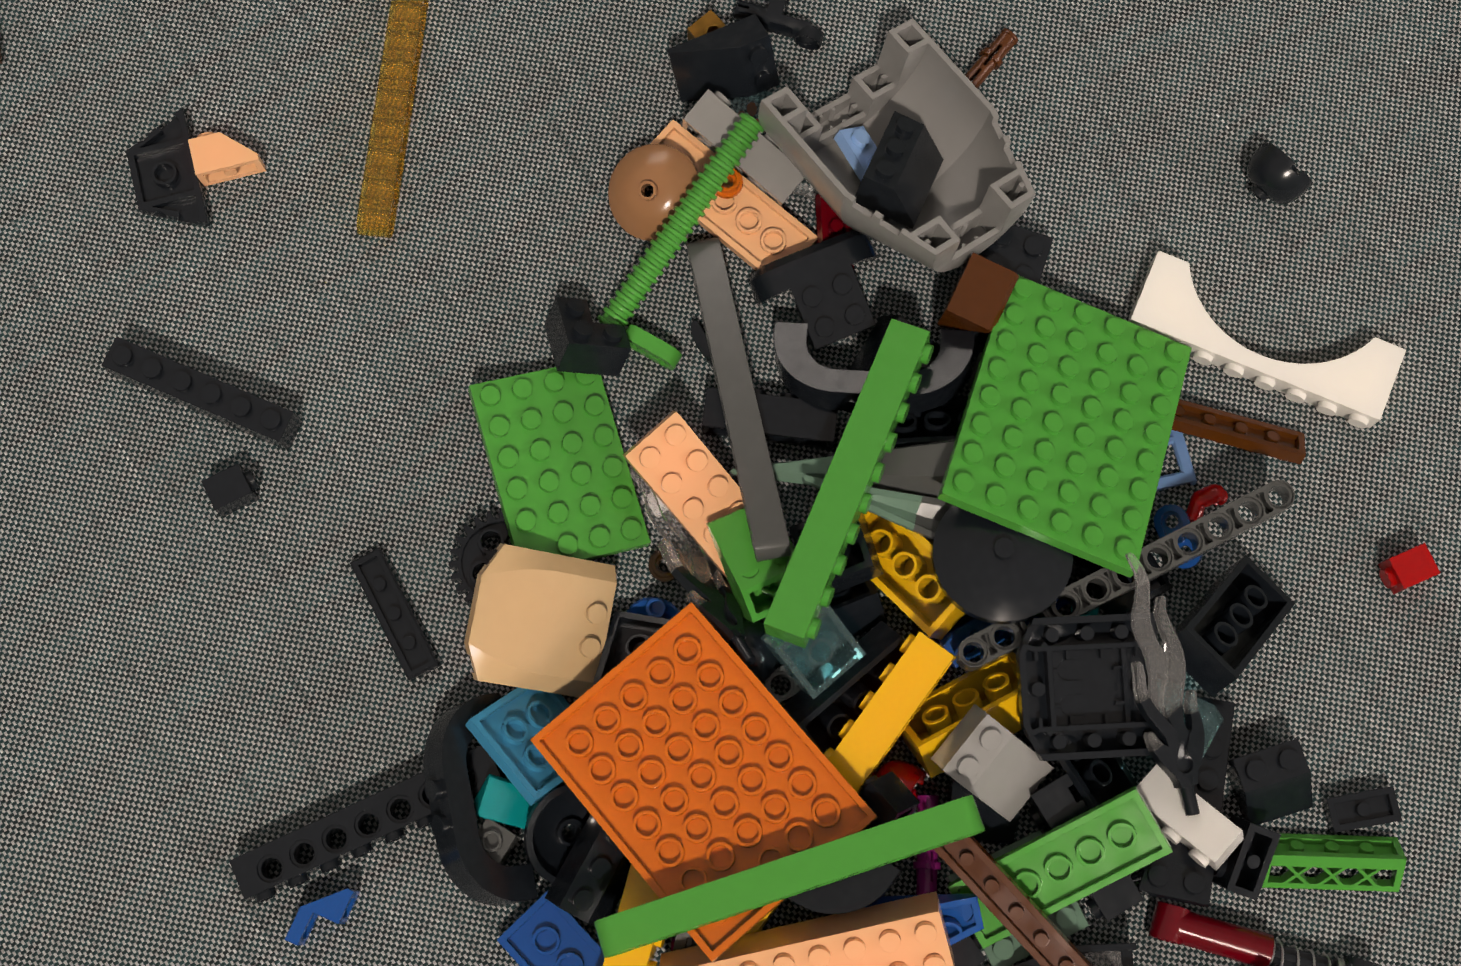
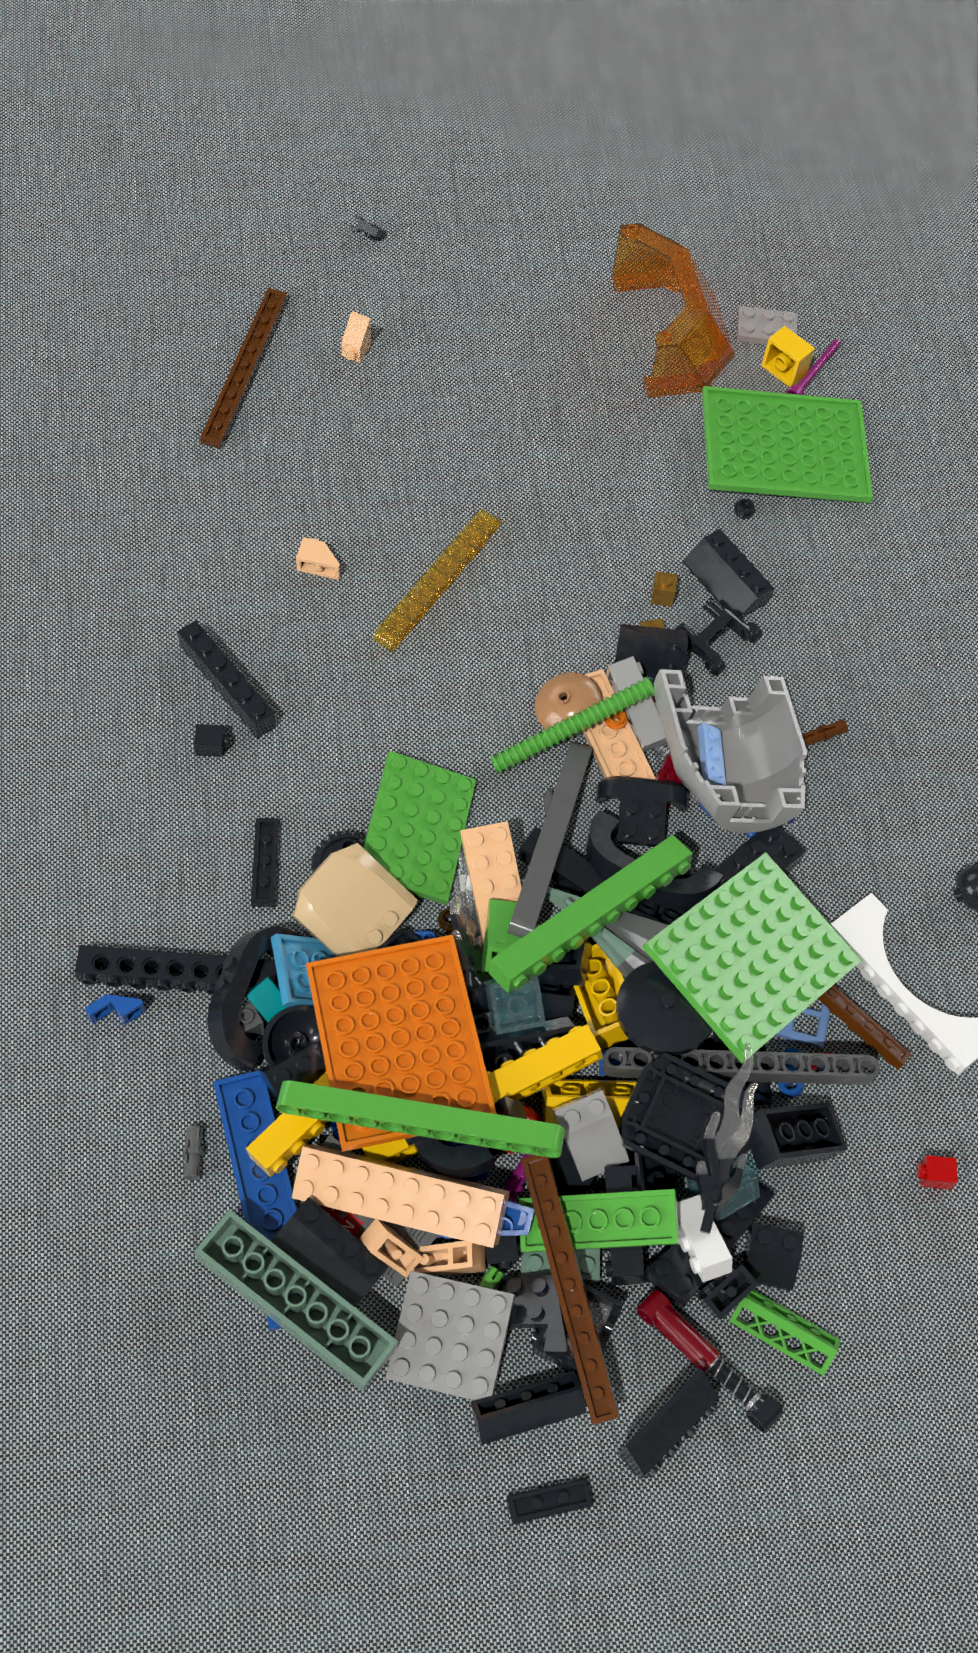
camera: 20 degrees right, 15 degrees down
(166, 175) = (278, 551): black wing -> none
(581, 344) = (473, 764): black brick -> none
(653, 347) = (514, 790): bright green beam -> none
(900, 171) = (729, 758): black slope -> none
(978, 296) = (736, 853): reddish brown slope -> none
(1362, 809) = (825, 1308): black plate -> none

